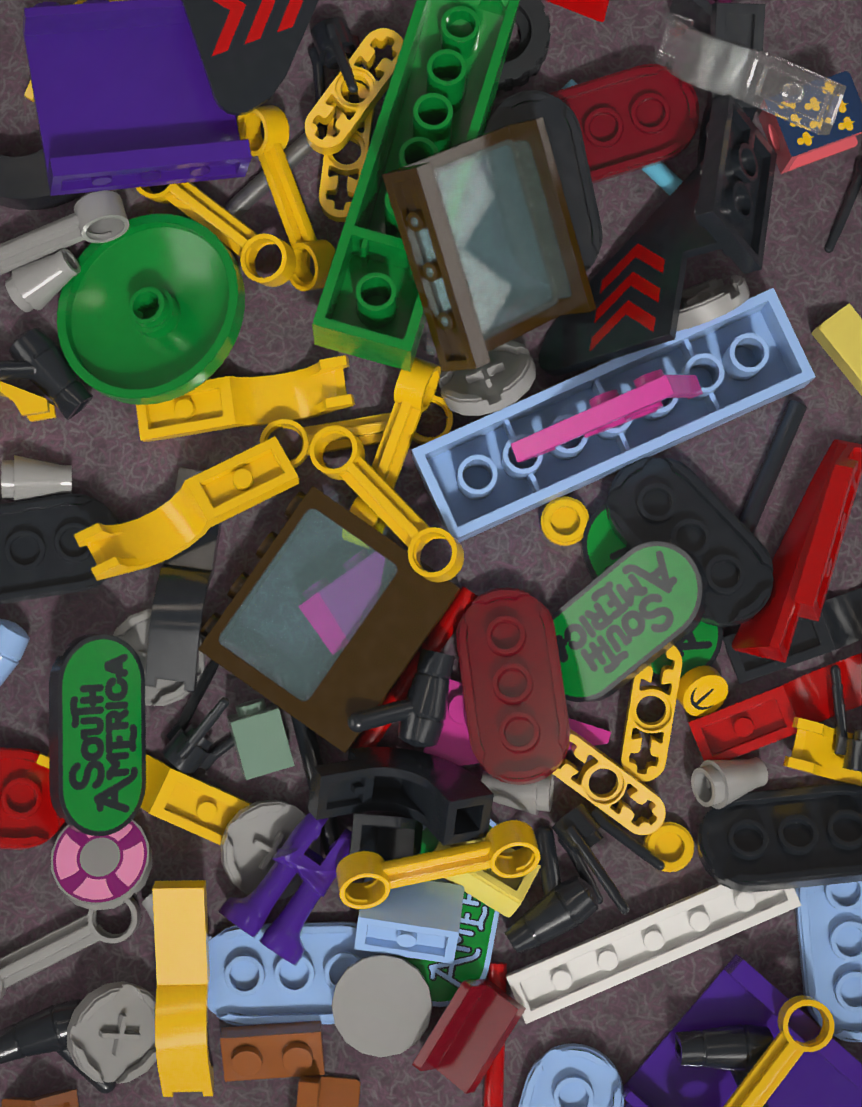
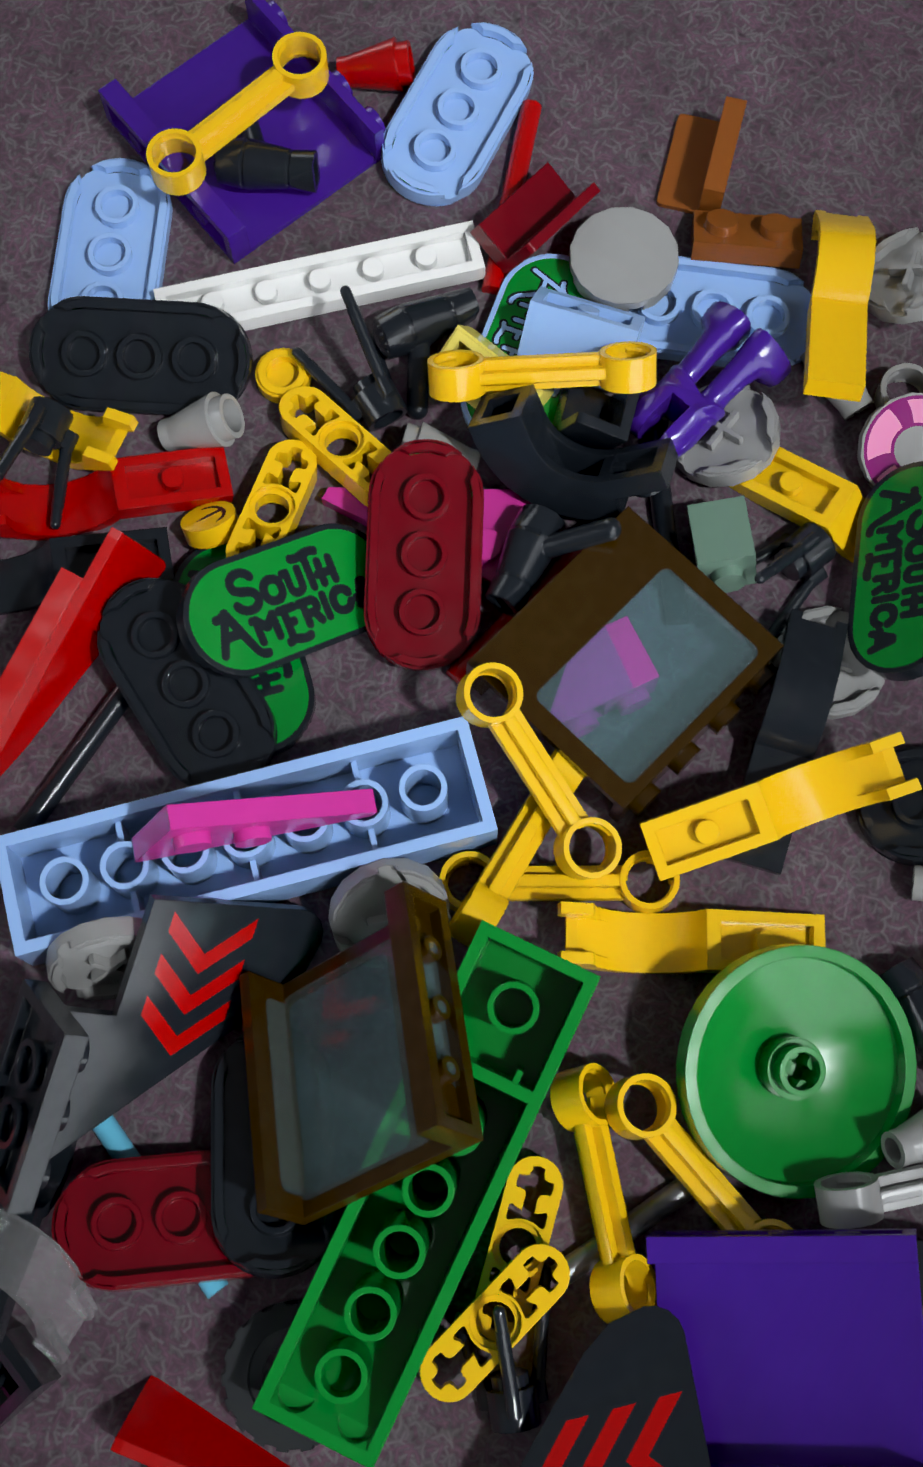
camera: 170 degrees left, 10 degrees down
(564, 521) = (327, 732): yellow tile -> none

